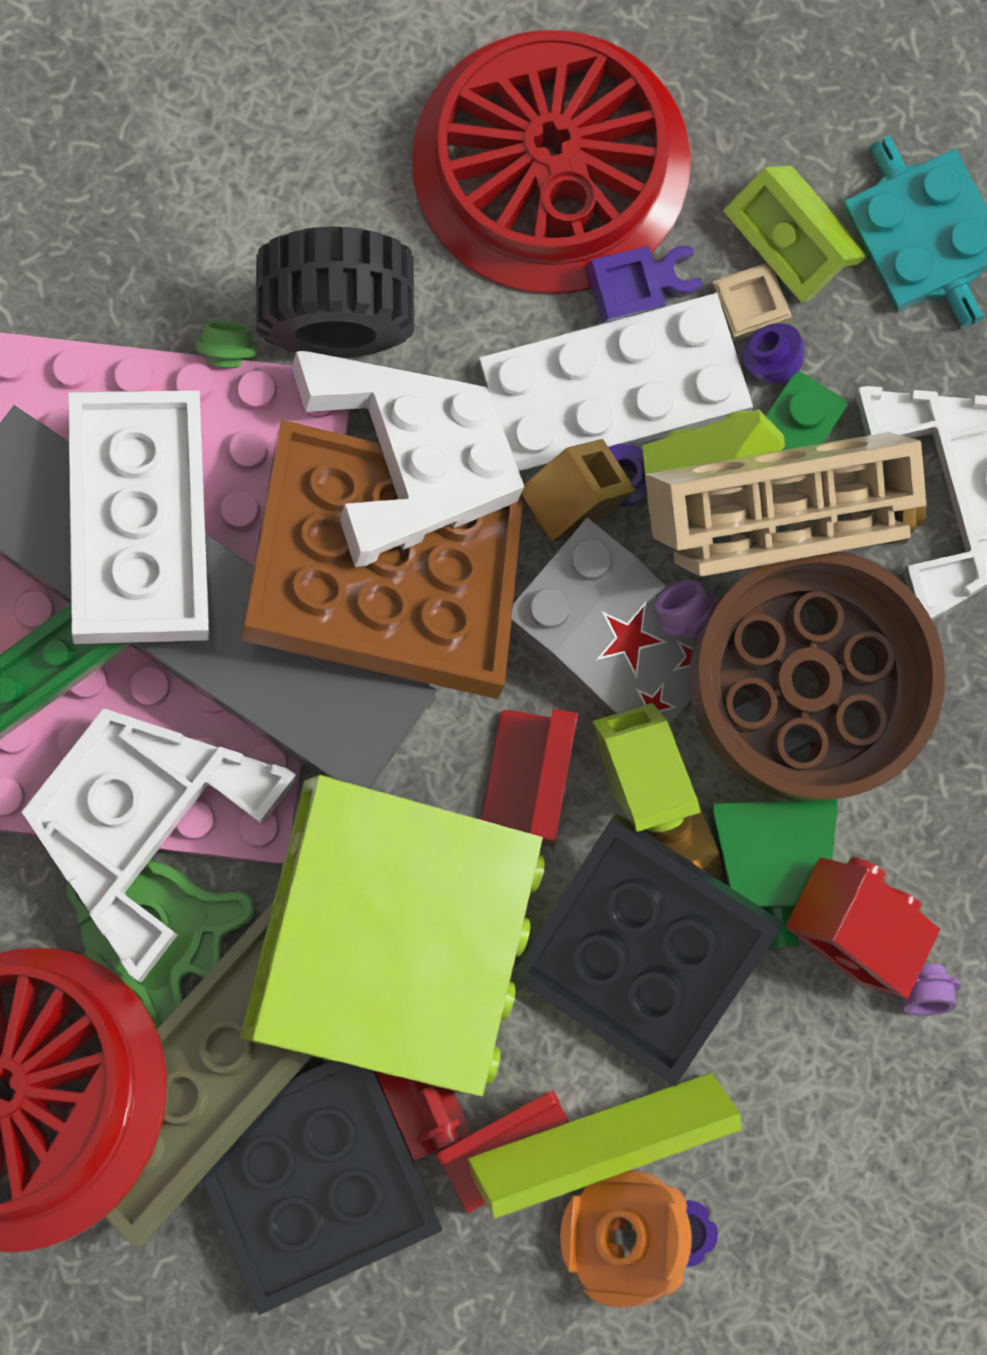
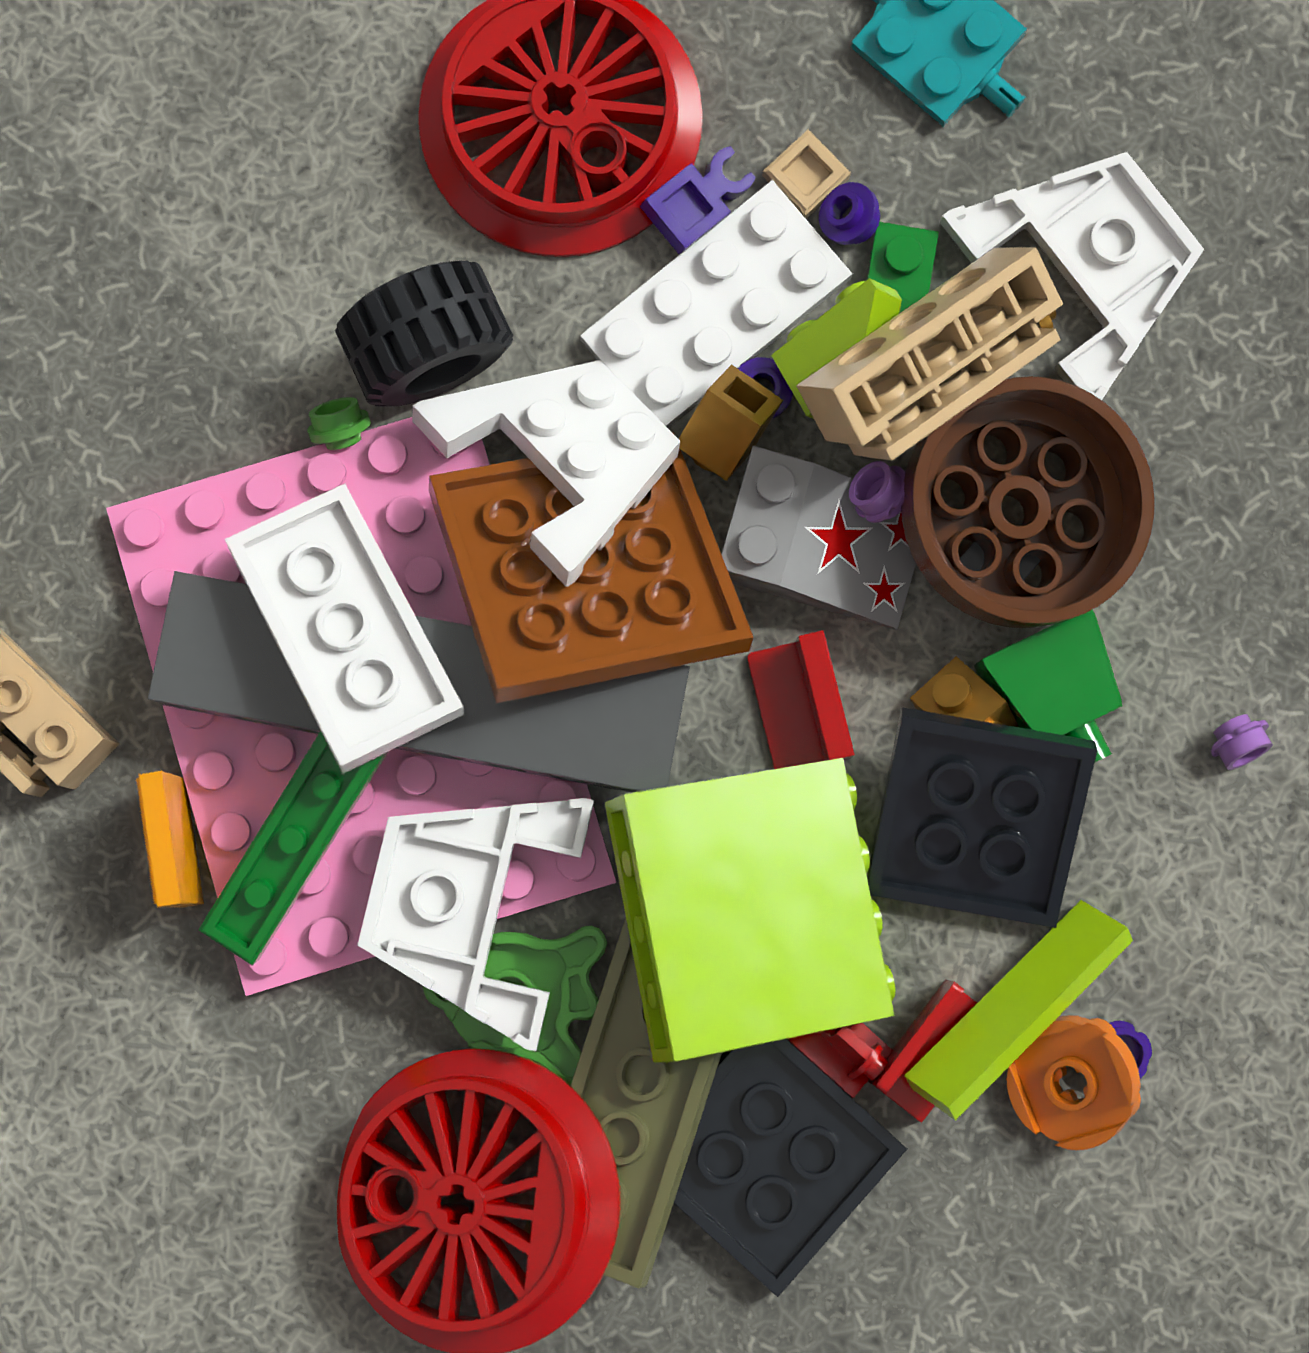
camera: 30 degrees left, 5 degrees up
(645, 769) = (907, 654): lime slope -> none
(794, 230) = (818, 90): lime panel -> none
(864, 925) = (1164, 710): red brick -> none

